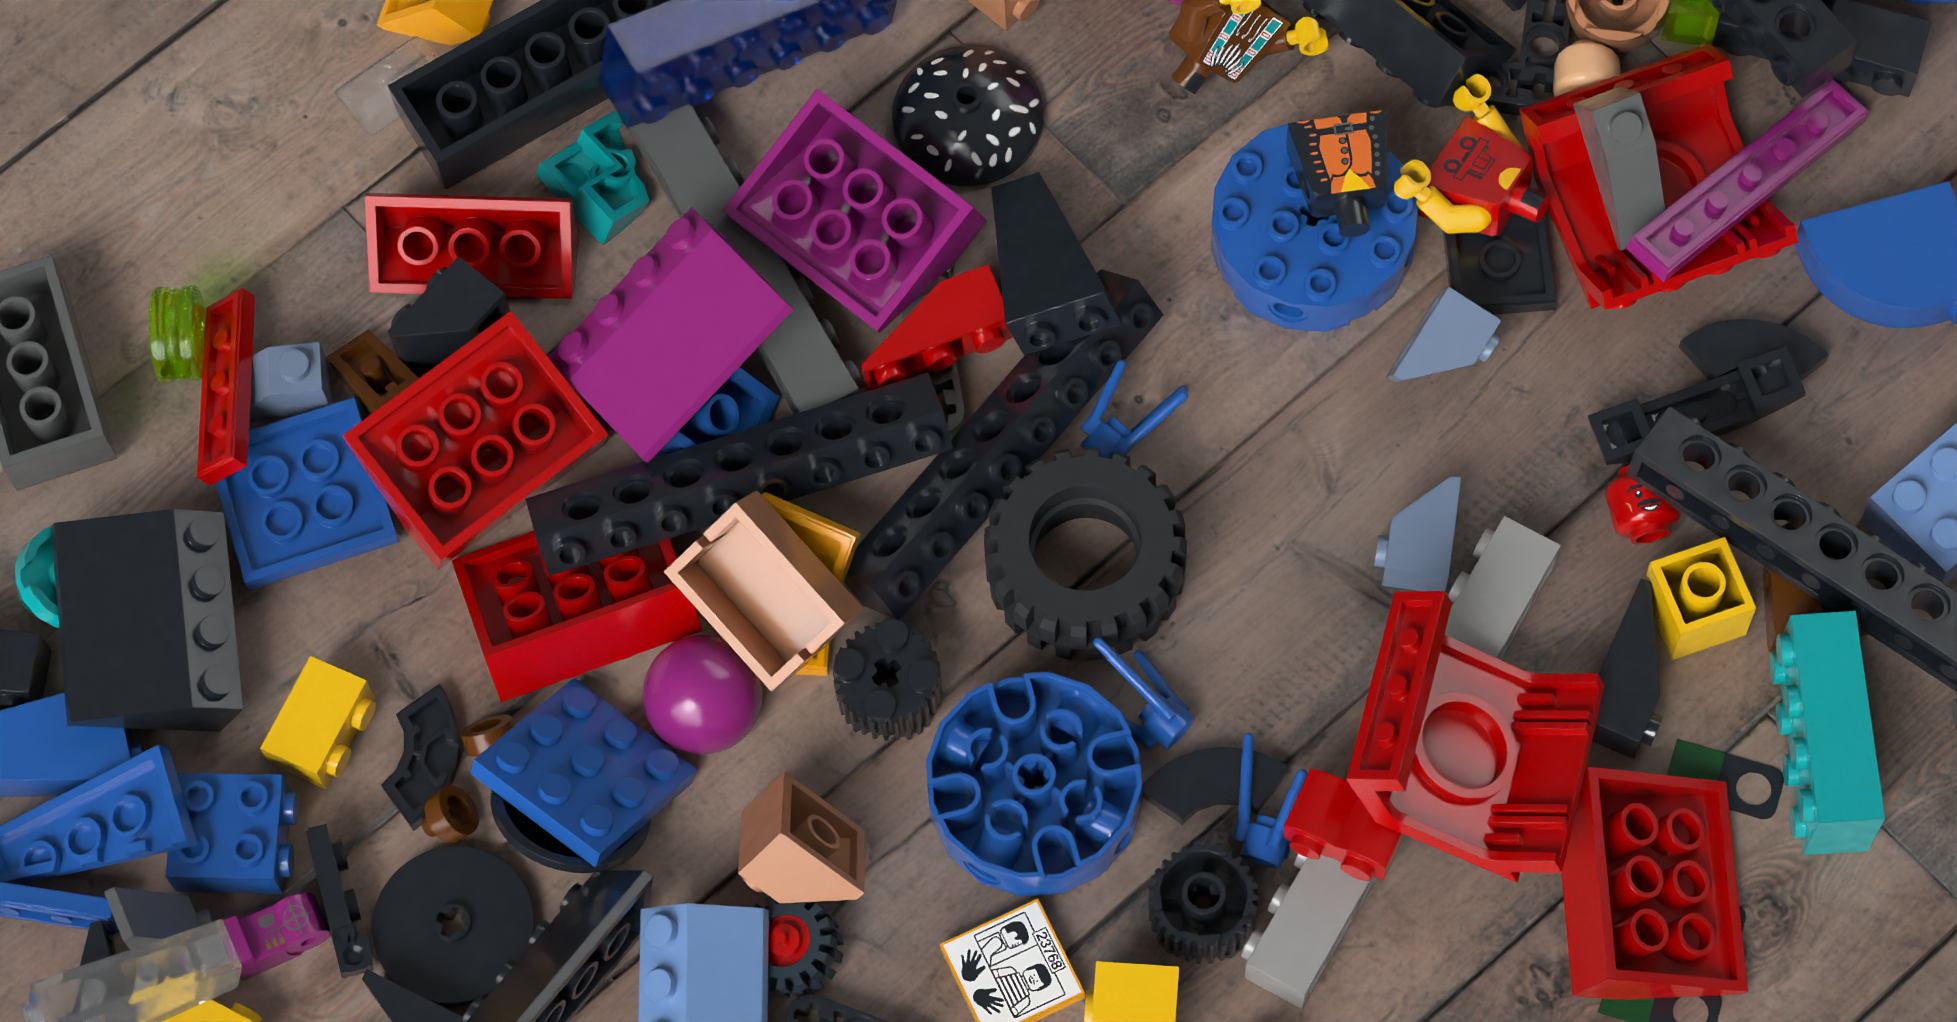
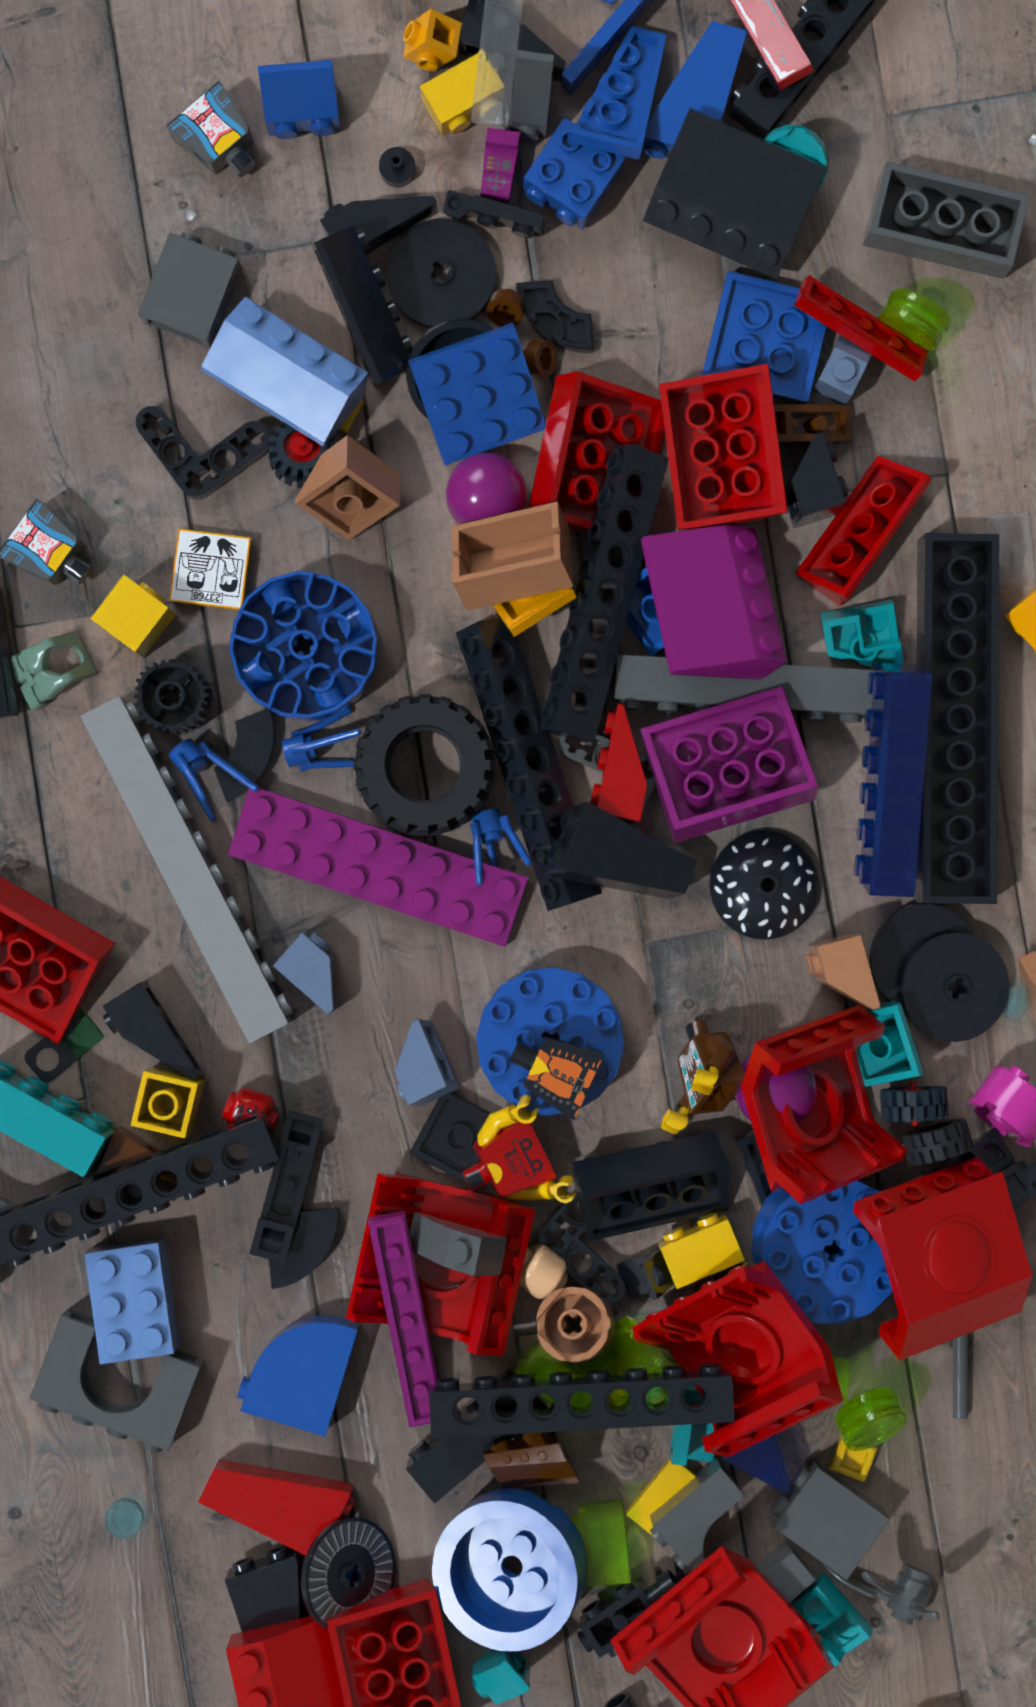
camera: 110 degrees right, 20 degrees up
(319, 723) = (611, 265): yellow brick -> none
(882, 654) = (406, 616): black brick -> none
(1245, 550) = (377, 865): none -> magenta plate
(1336, 824) = (154, 801): red brick -> none
(1471, 745) = (148, 903): red panel -> none

